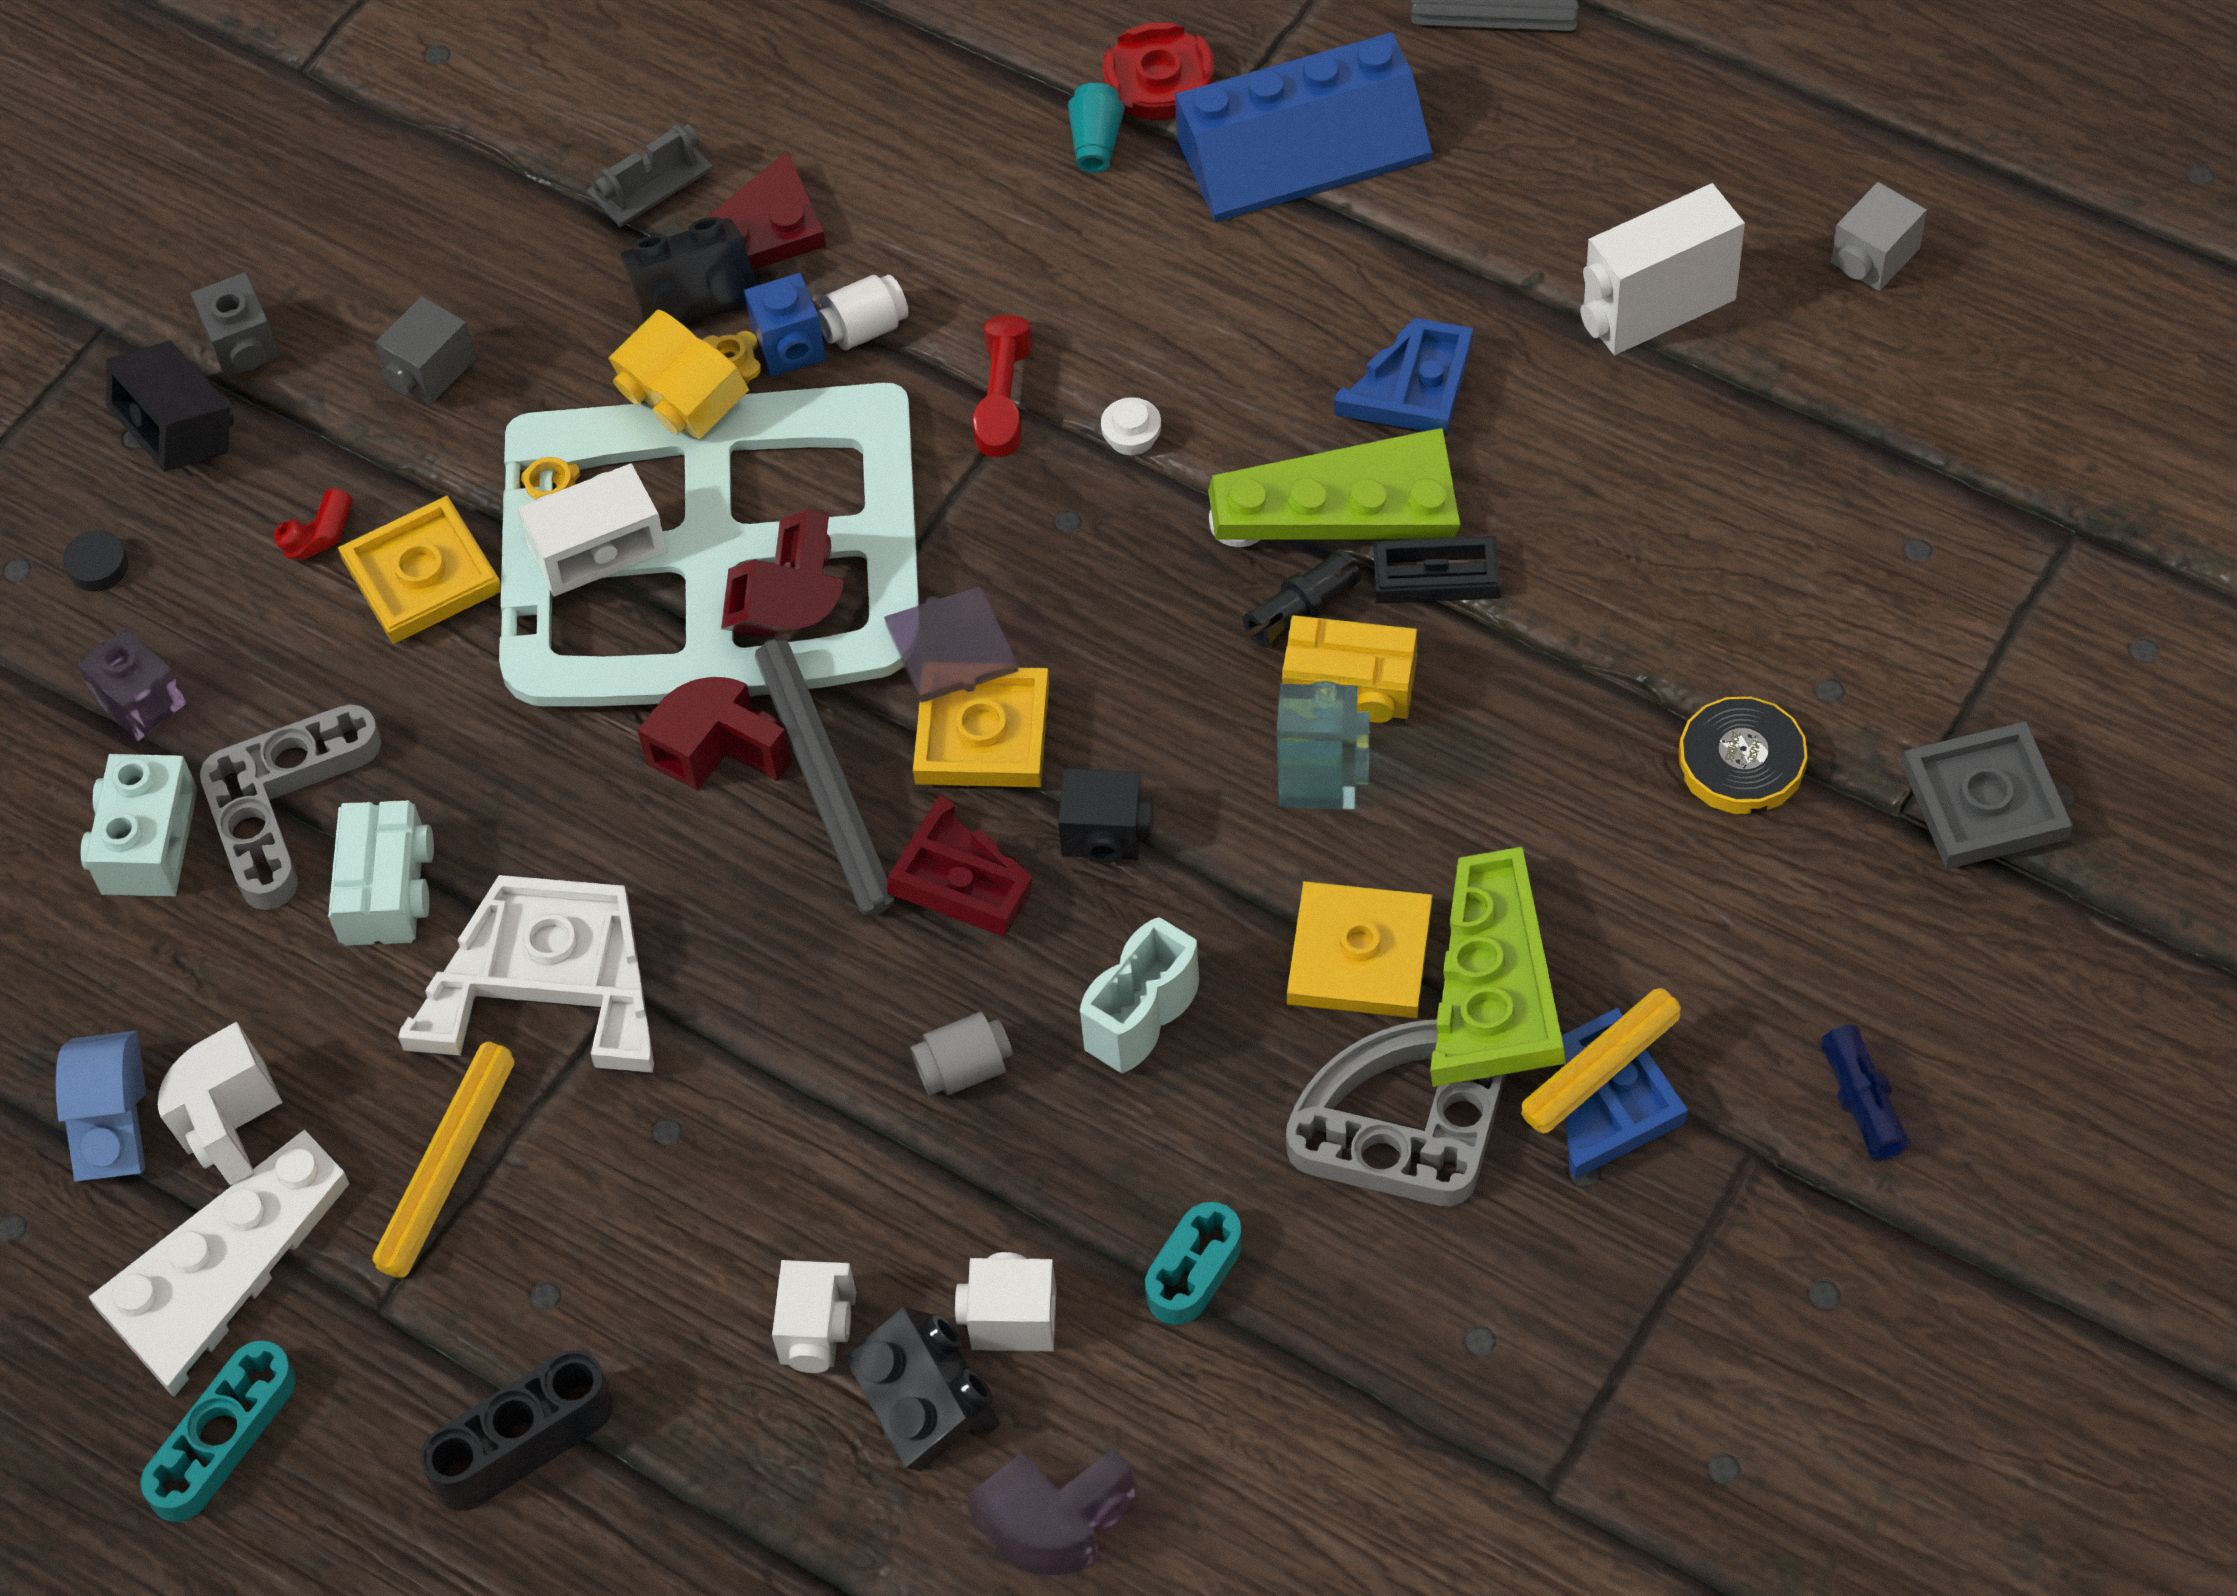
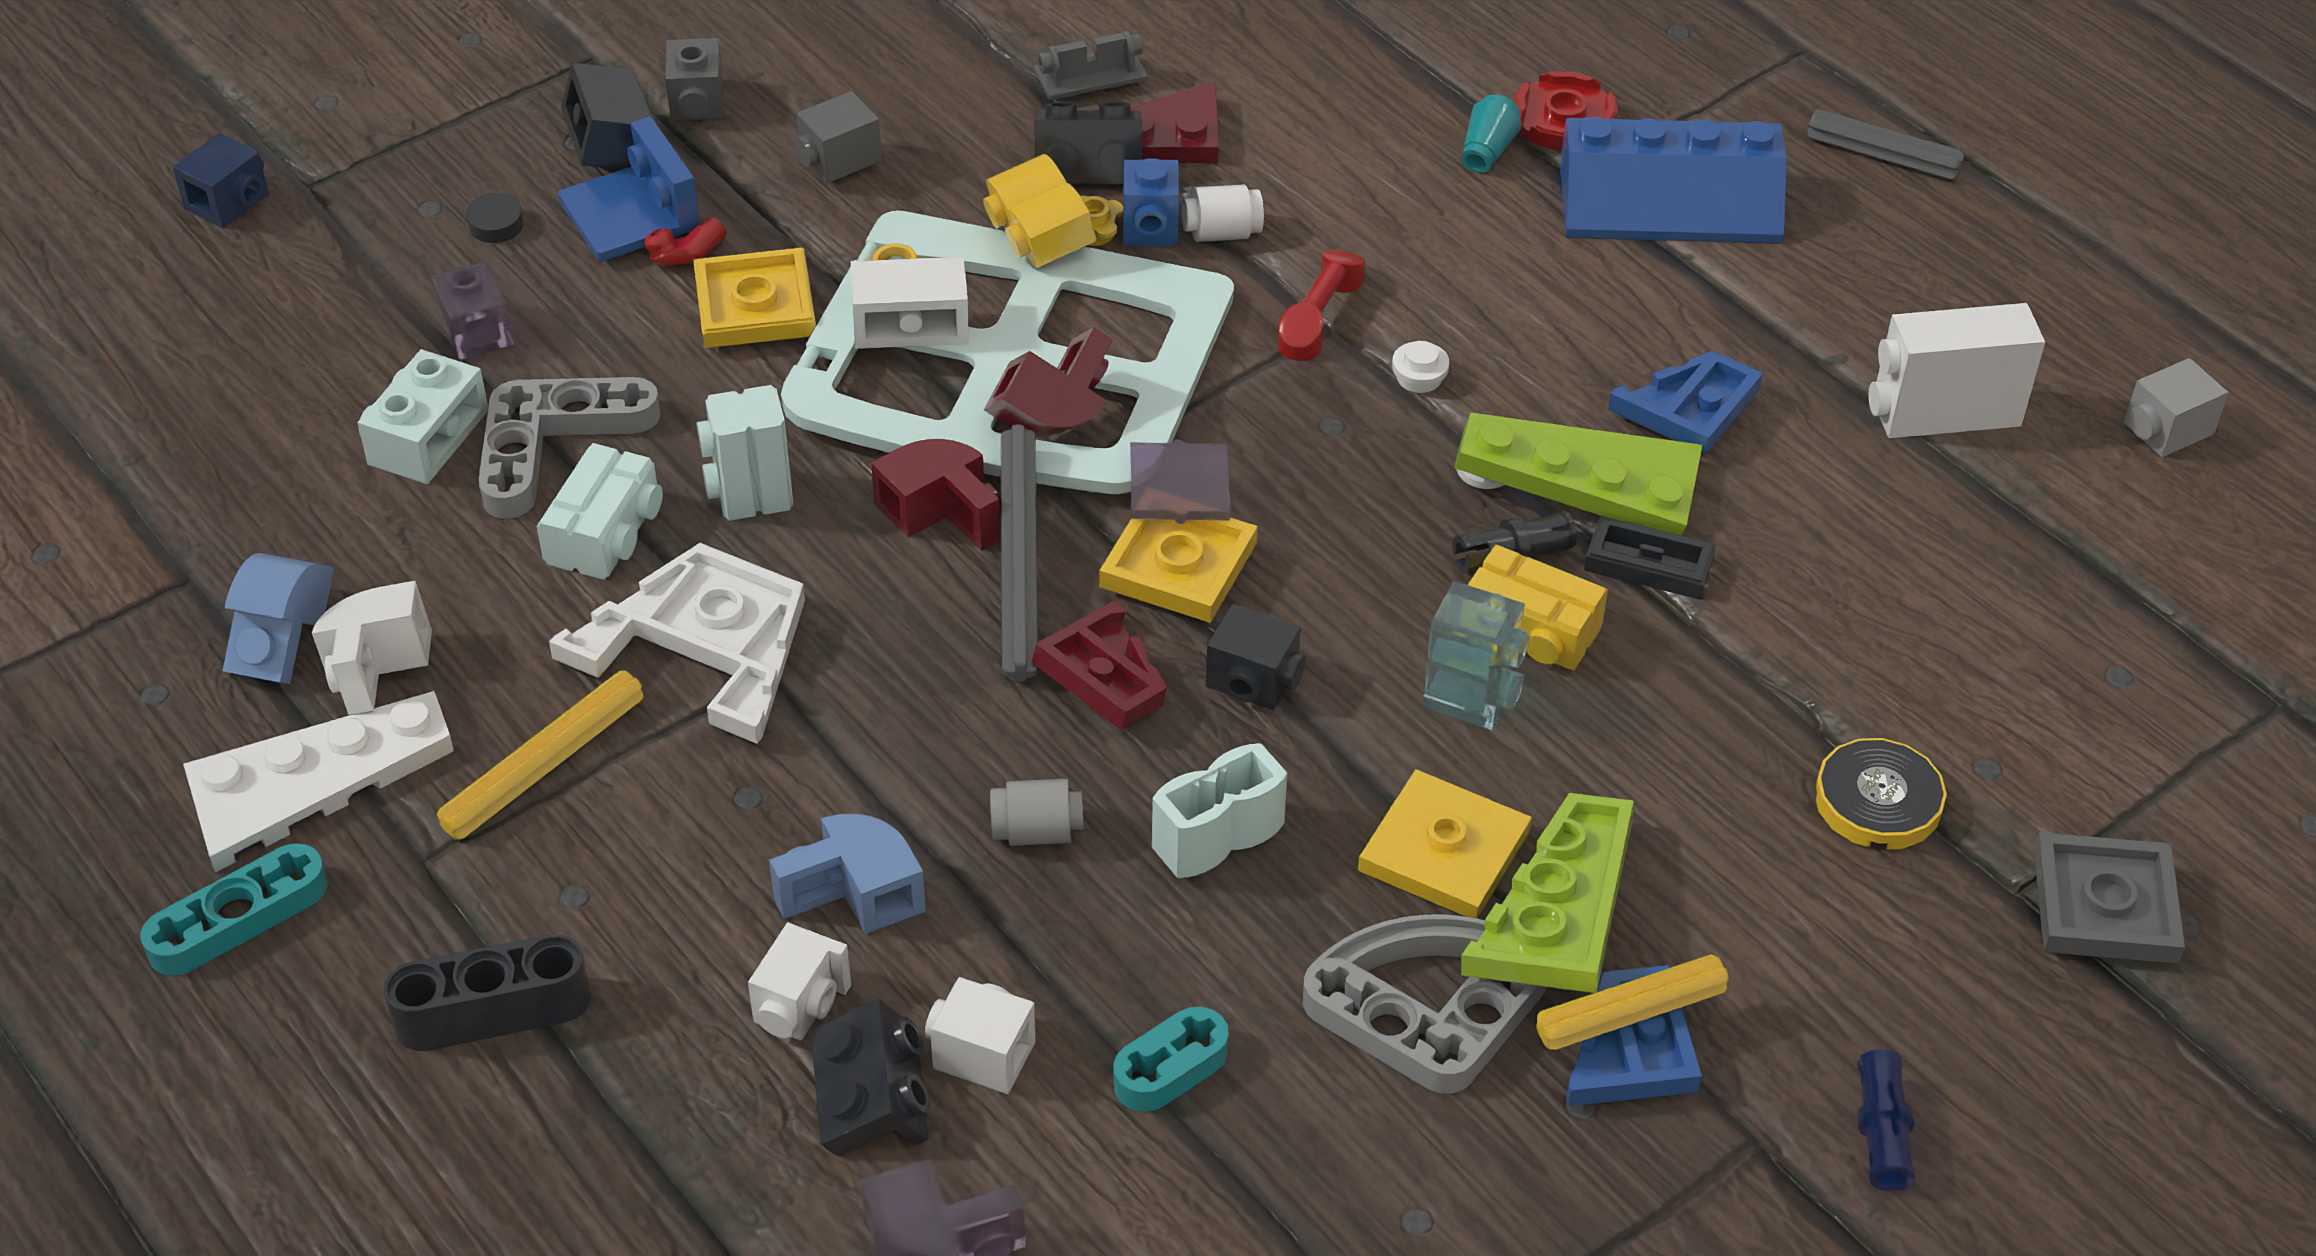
camera: 15 degrees right, 10 degrees down
(240, 493) = (626, 205): none -> blue bracket
(506, 761) = (748, 452): none -> light aqua brick
(818, 1167) = (856, 861): none -> medium blue brick

